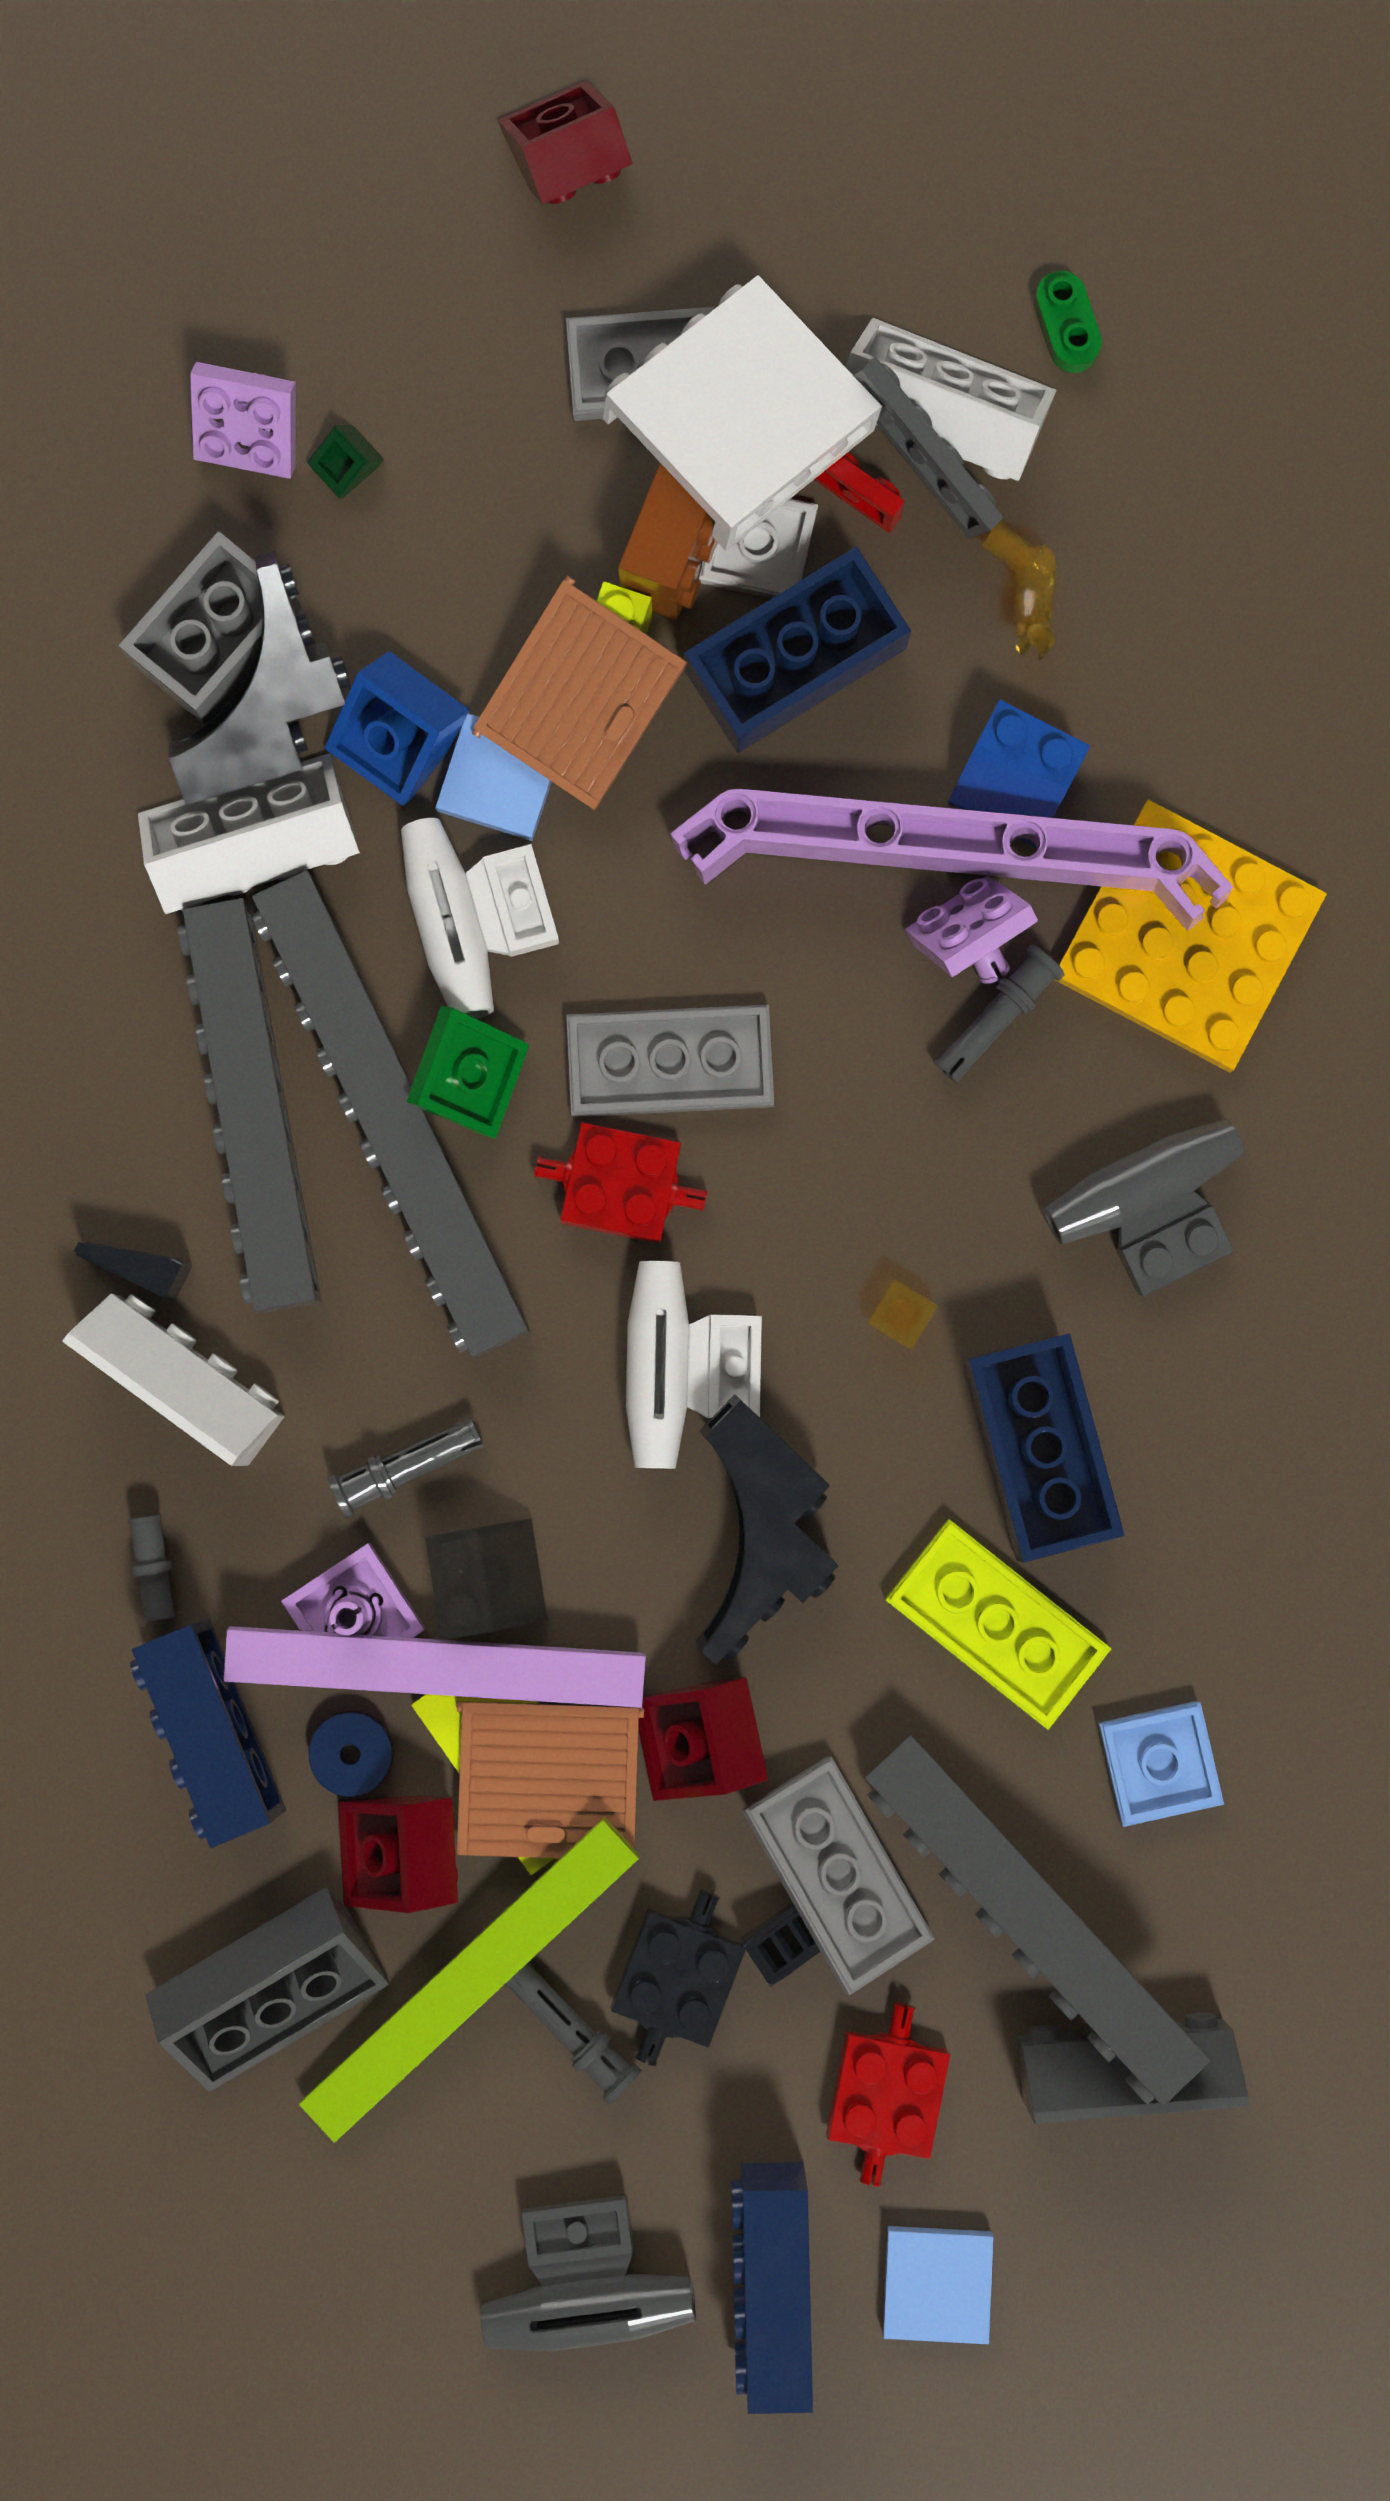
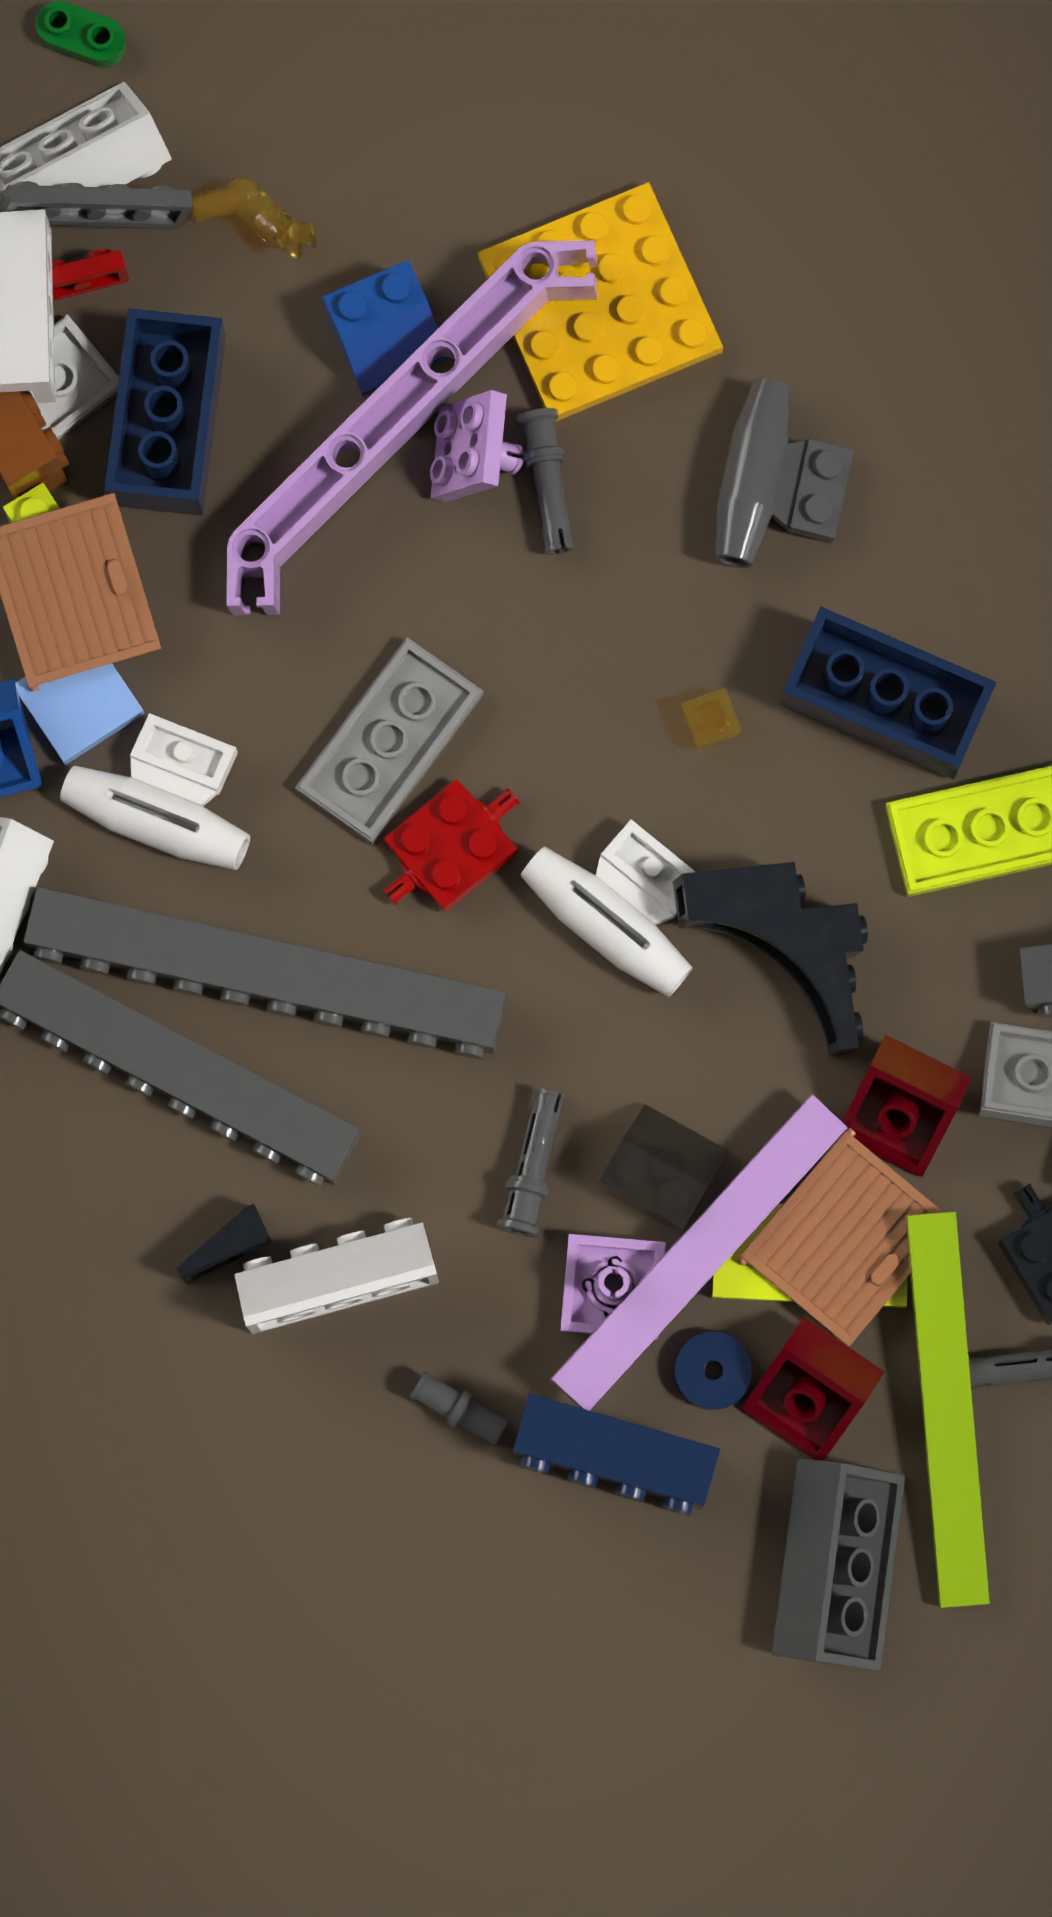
camera: 50 degrees left, 5 degrees down
(468, 1072) = (282, 888): green plate -> none

